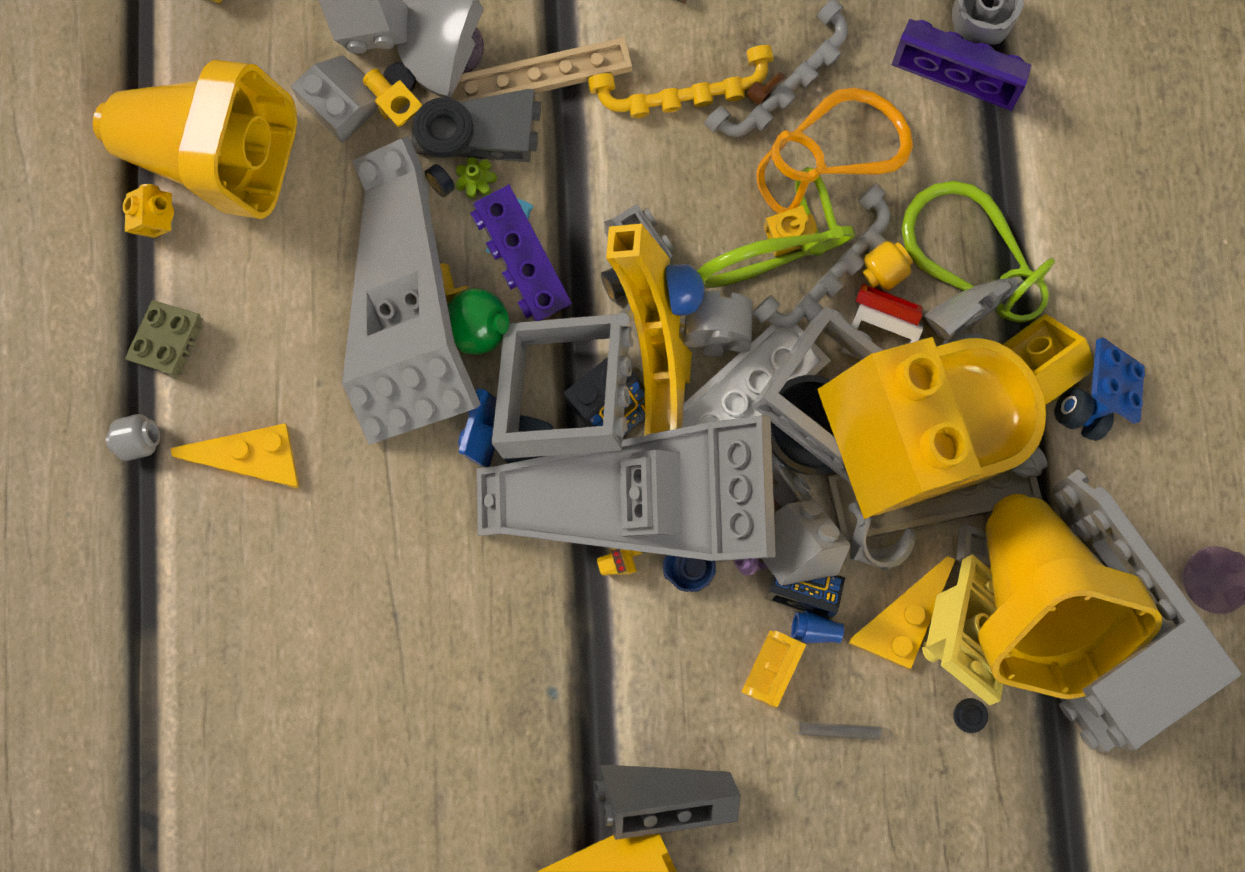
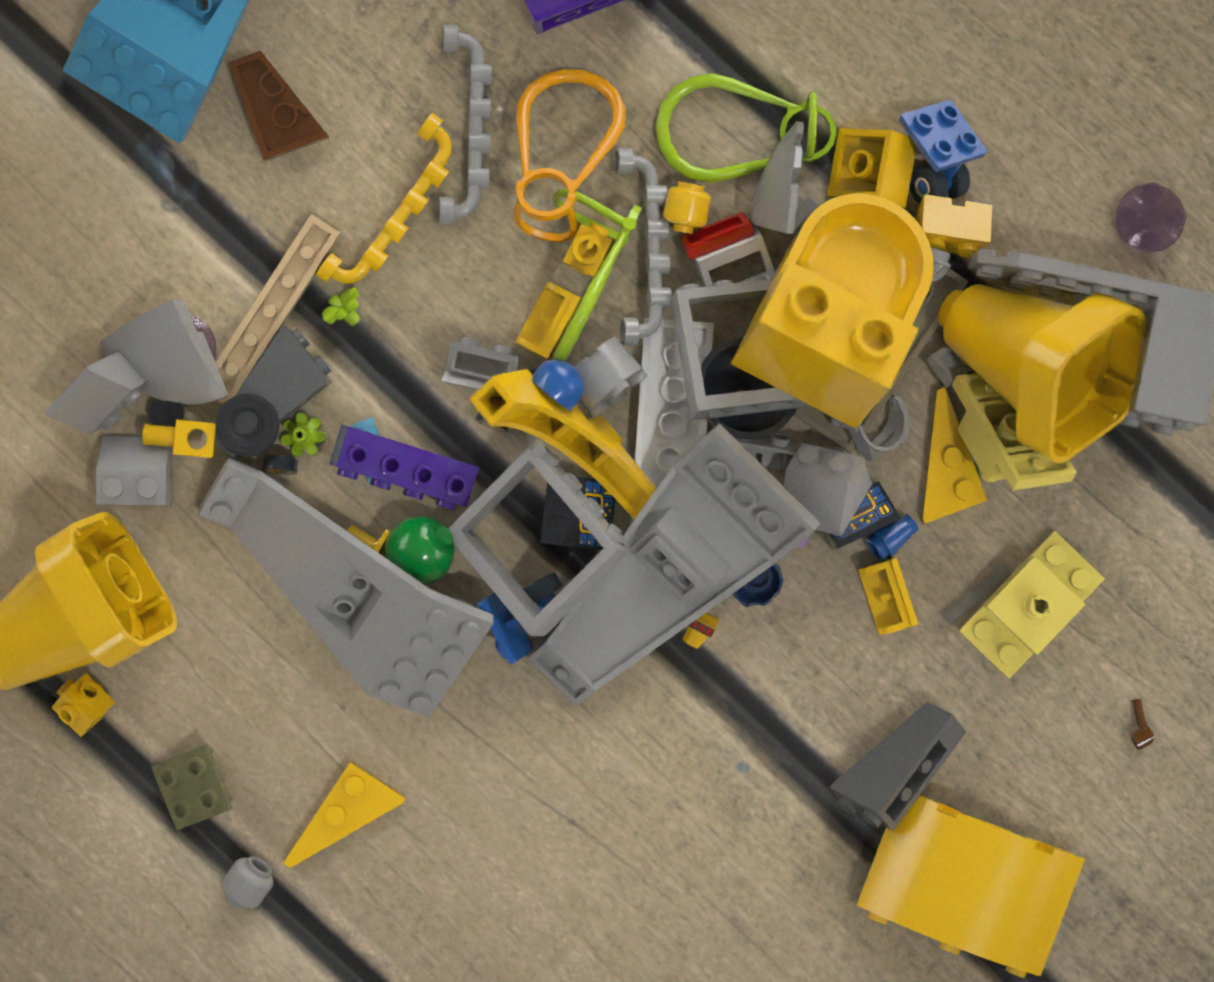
camera: 45 degrees left, 10 degrees up
(585, 119) = (343, 307): none -> lime plant
(703, 252) = (548, 320): none -> yellow hinge
(760, 92) = (458, 157): reddish brown hand -> none
(873, 776) = (1032, 605): none -> light yellow brick
(970, 715) = (1061, 495): black plate -> none
(1068, 449) = (955, 227): none -> yellow brick

